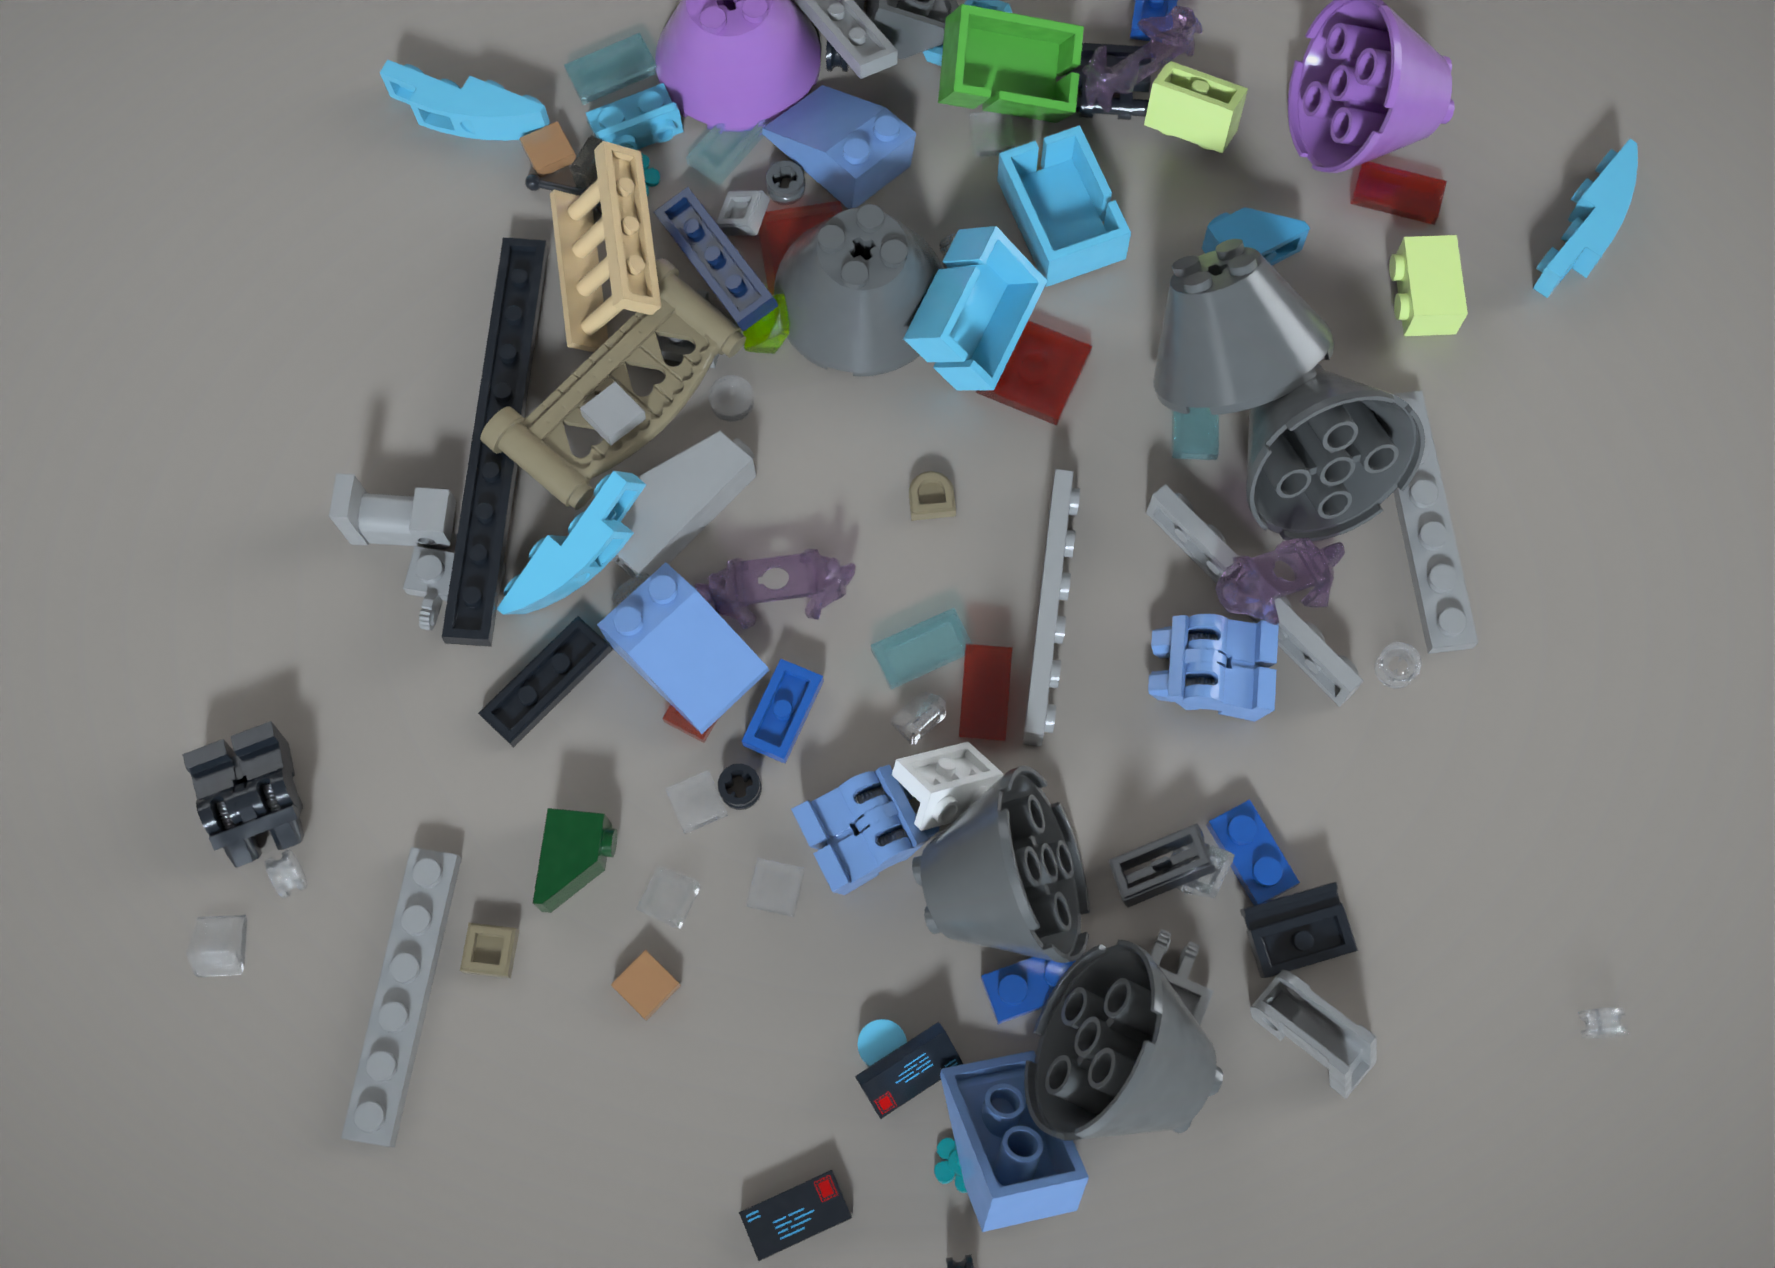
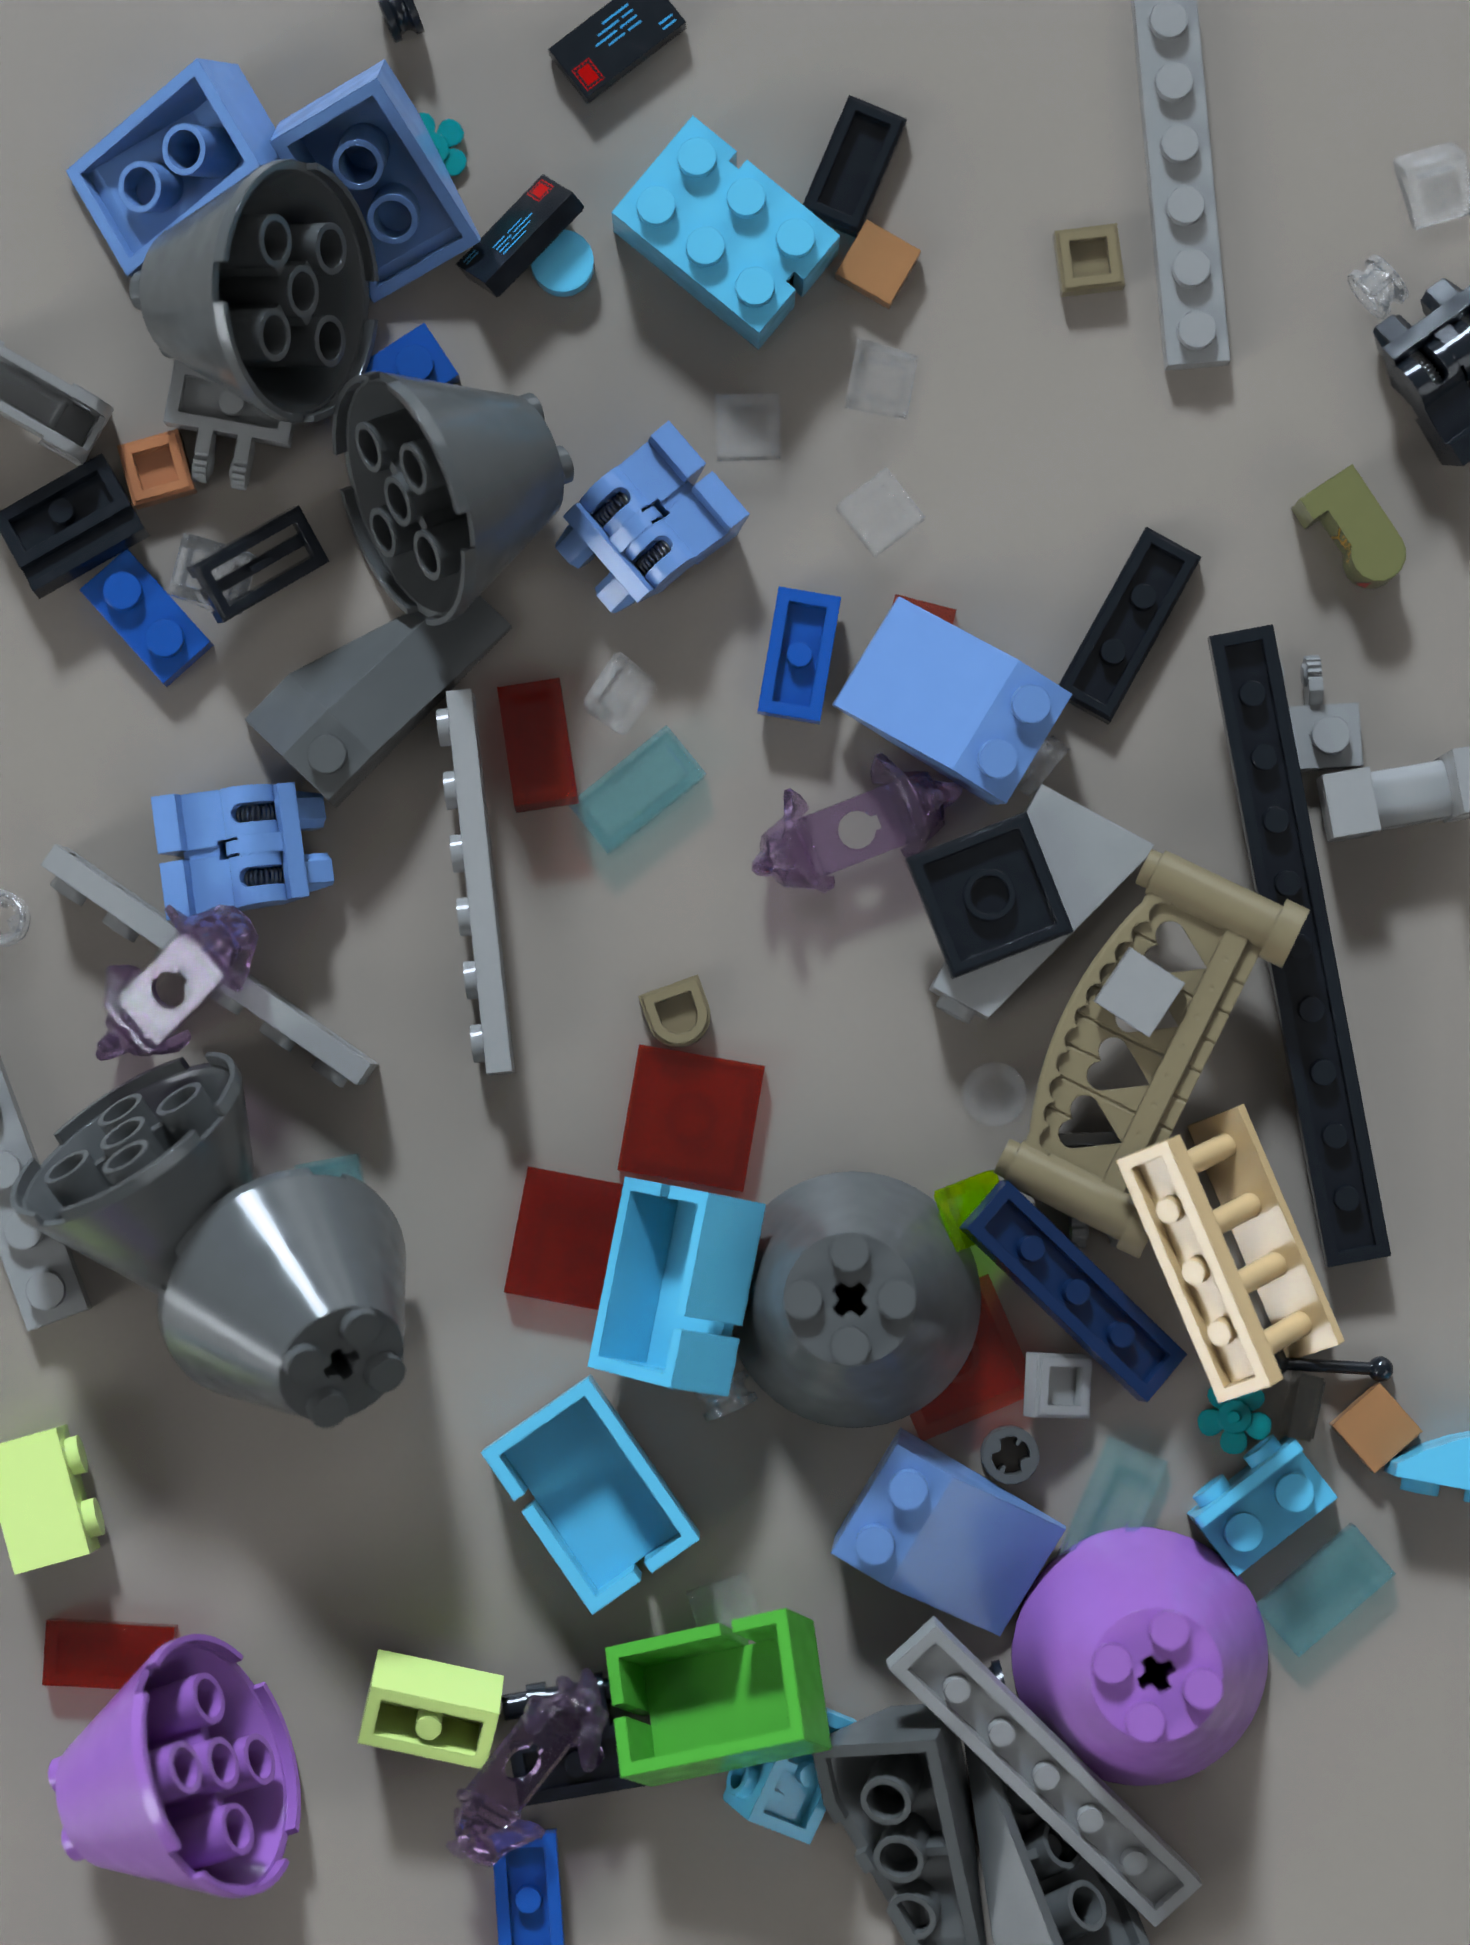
camera: 160 degrees right, 15 degrees up
(359, 702) = (1358, 527): none -> olive leg
(568, 562) = (1134, 783): medium azure slope -> none
(571, 855) = (1018, 400): dark green slope -> none
(642, 1066) = (854, 165): none -> black tile
(695, 504) = (989, 895): none -> black tile
(726, 781) = (811, 539): black bush -> none
(752, 1031) = (725, 232): none -> medium azure piece
(939, 427) = (691, 1118): none -> clear red tile
(945, 781) = (555, 600): white bracket -> none
(1112, 750) = (365, 697): none -> dark grey wedge
(1162, 1193) = (173, 157): none -> medium blue slope
(1224, 962) = (157, 469): none -> nougat tile
(1268, 233) = (312, 1507): dark azure slope -> none

